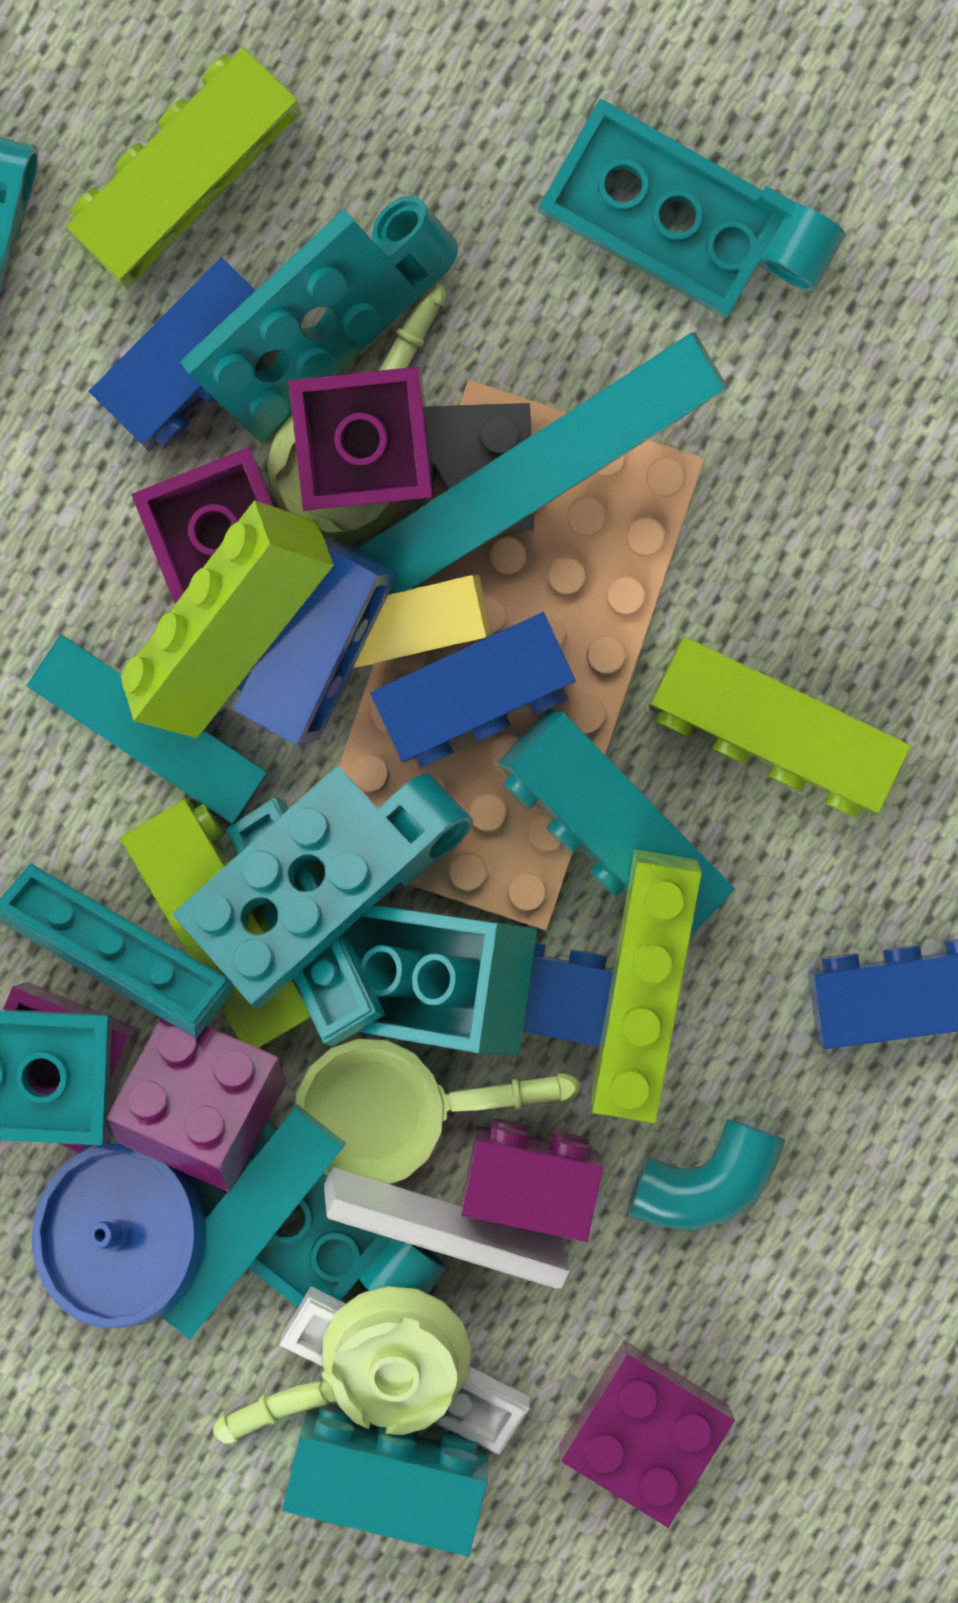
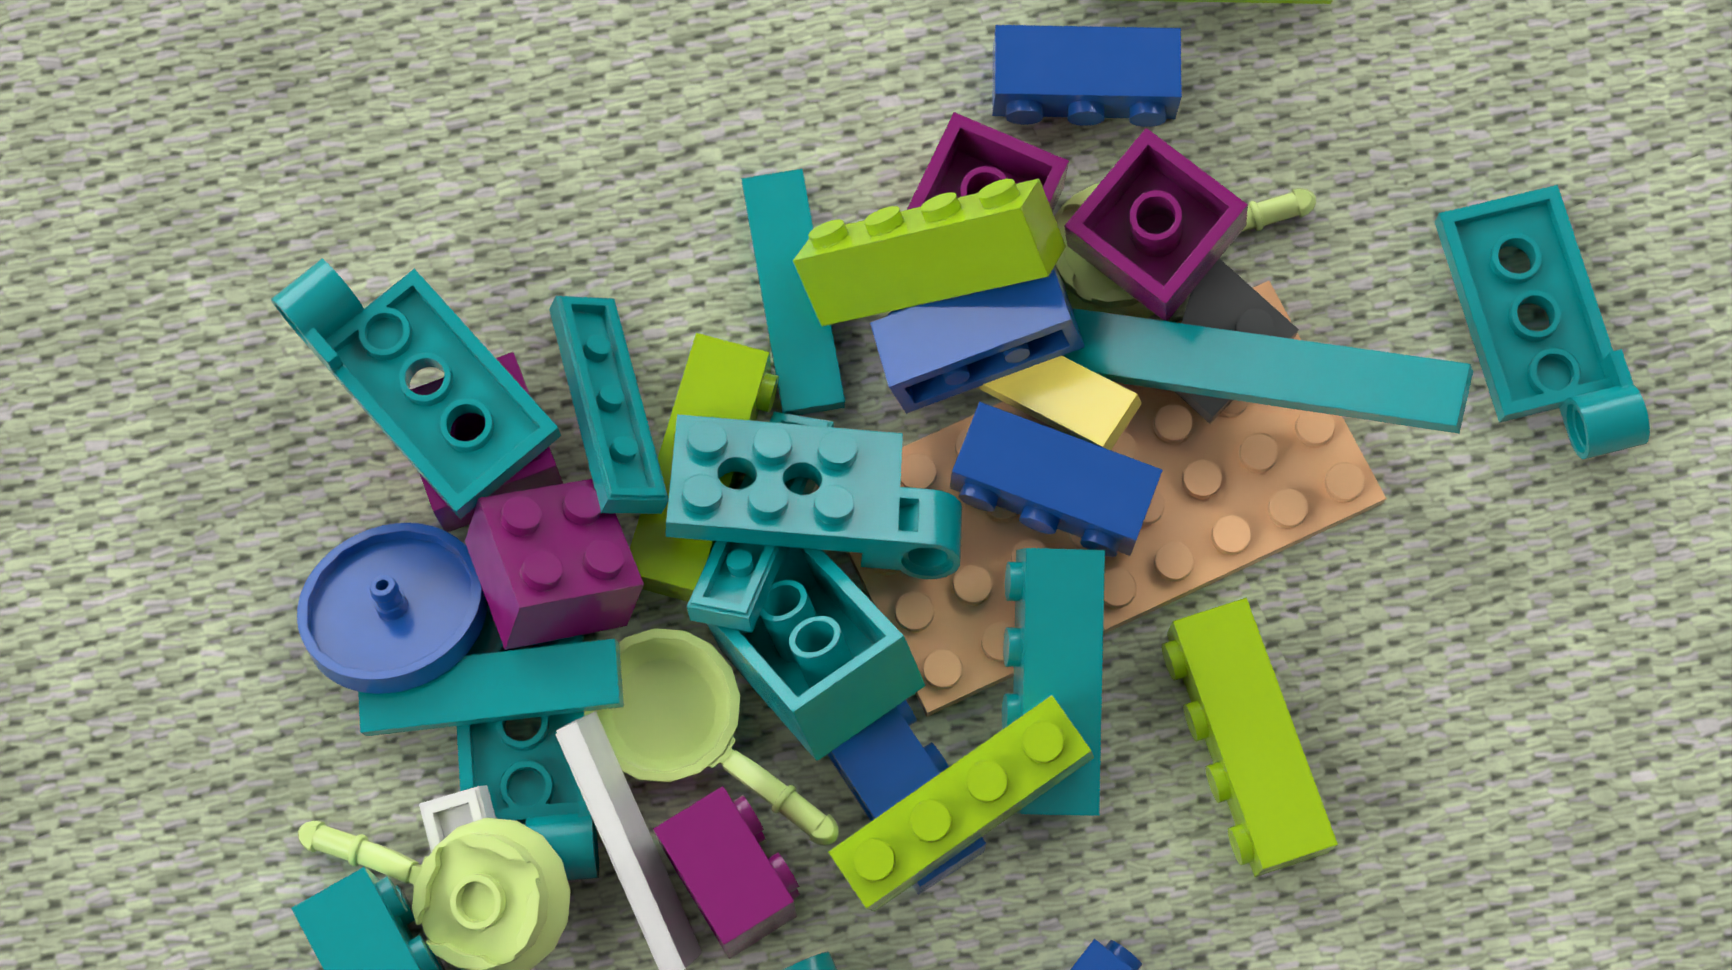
camera: 45 degrees right, 15 degrees down
(338, 269) = (1258, 108): teal hinge -> none

